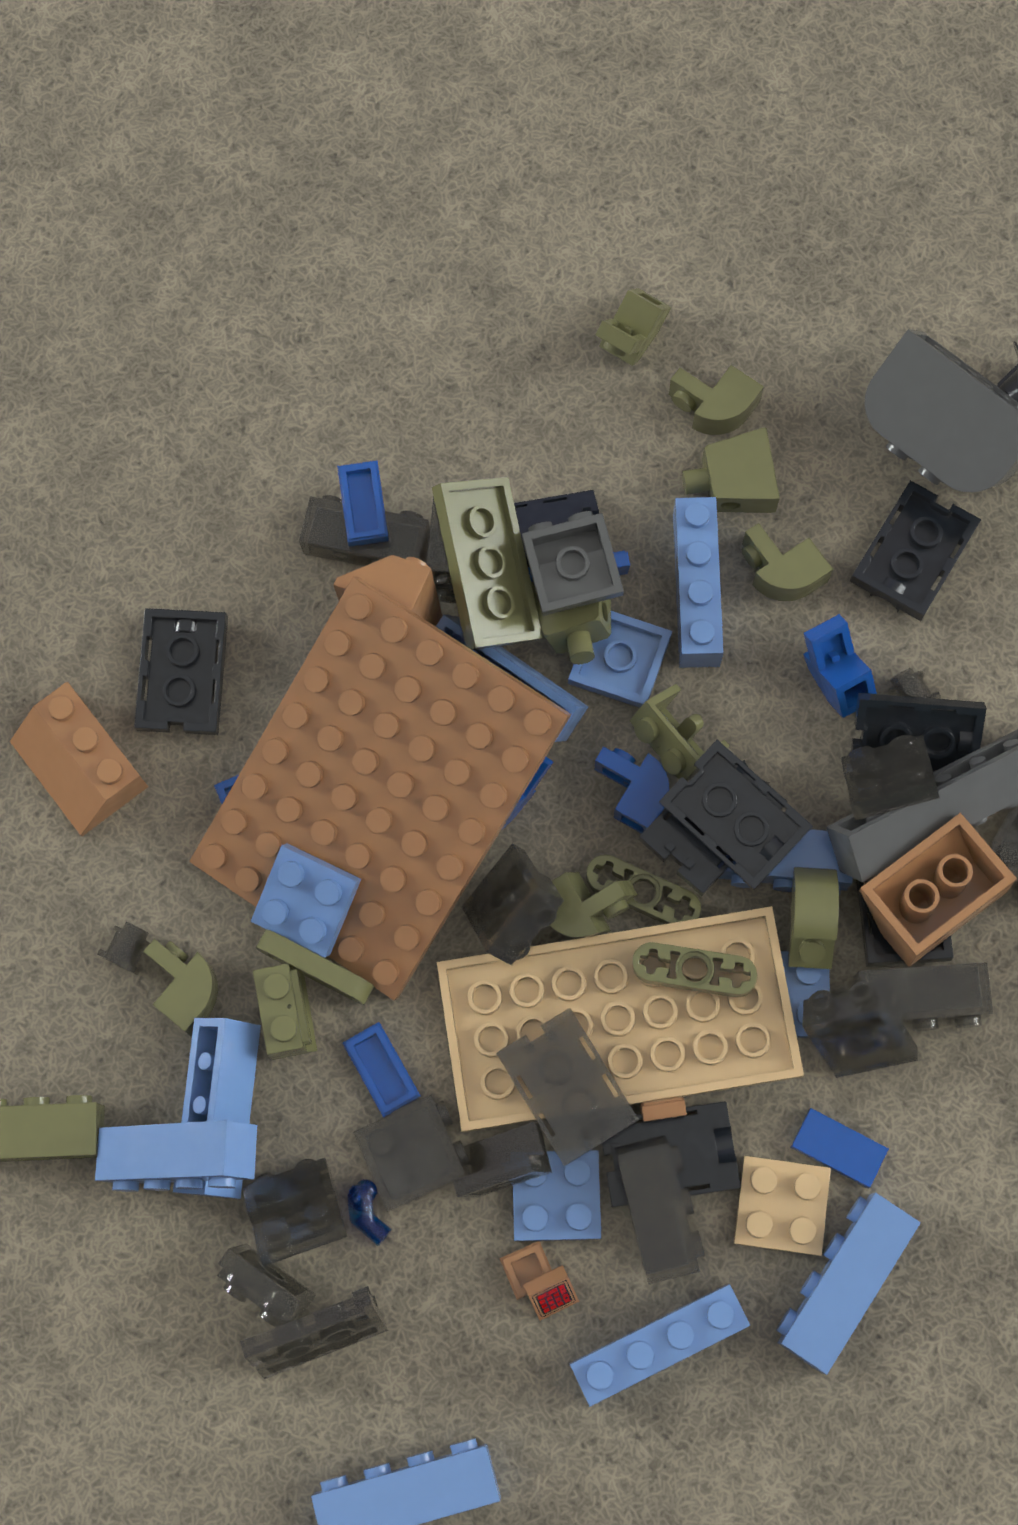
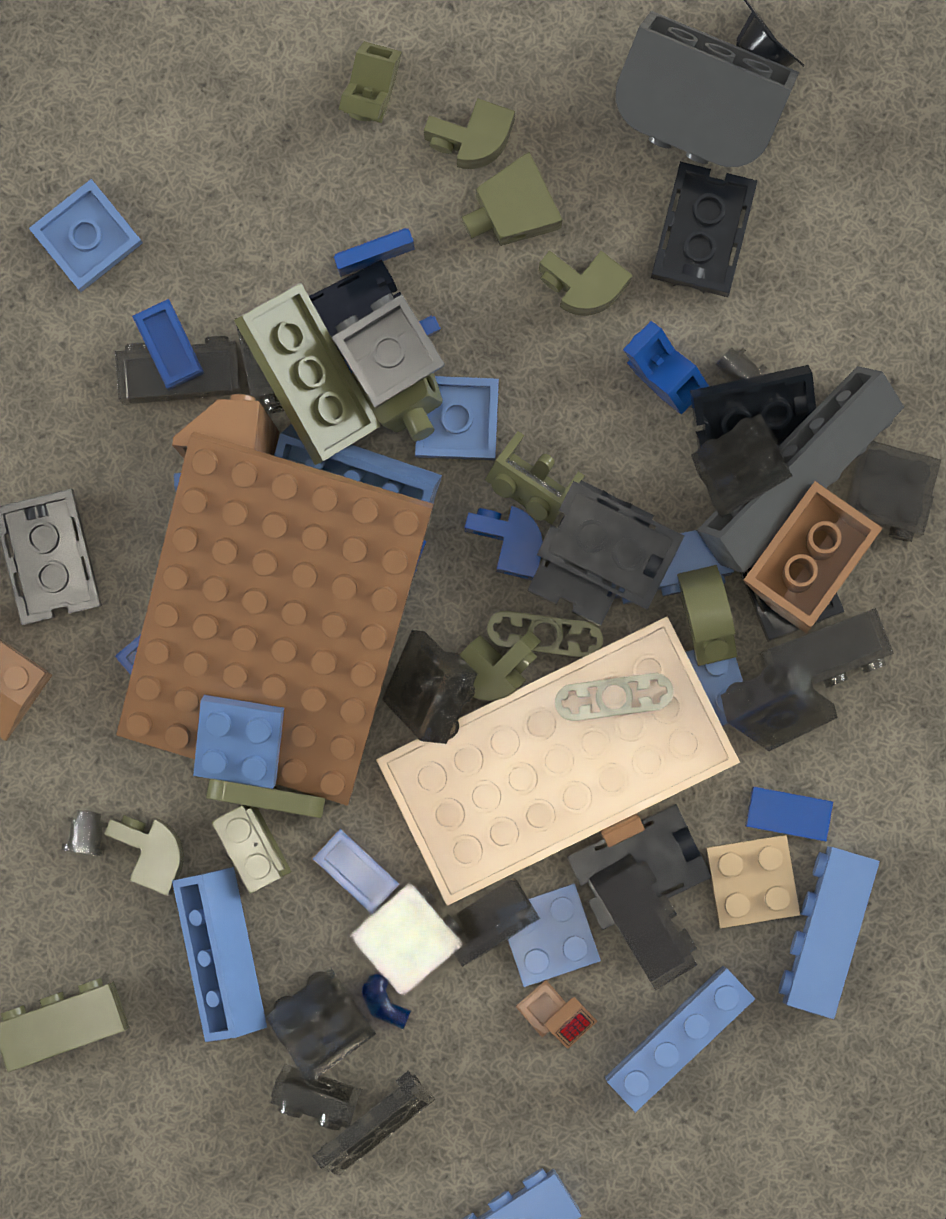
camera: 20 degrees left, 10 degrees up
(176, 1153) = (199, 1010): medium blue brick -> none
(319, 388) = (86, 235): none -> medium blue plate
(568, 1087) = (531, 838): clear smoke piece -> none
(600, 478) = (373, 251): none -> blue tile
(697, 582) = (508, 323): medium blue brick -> none

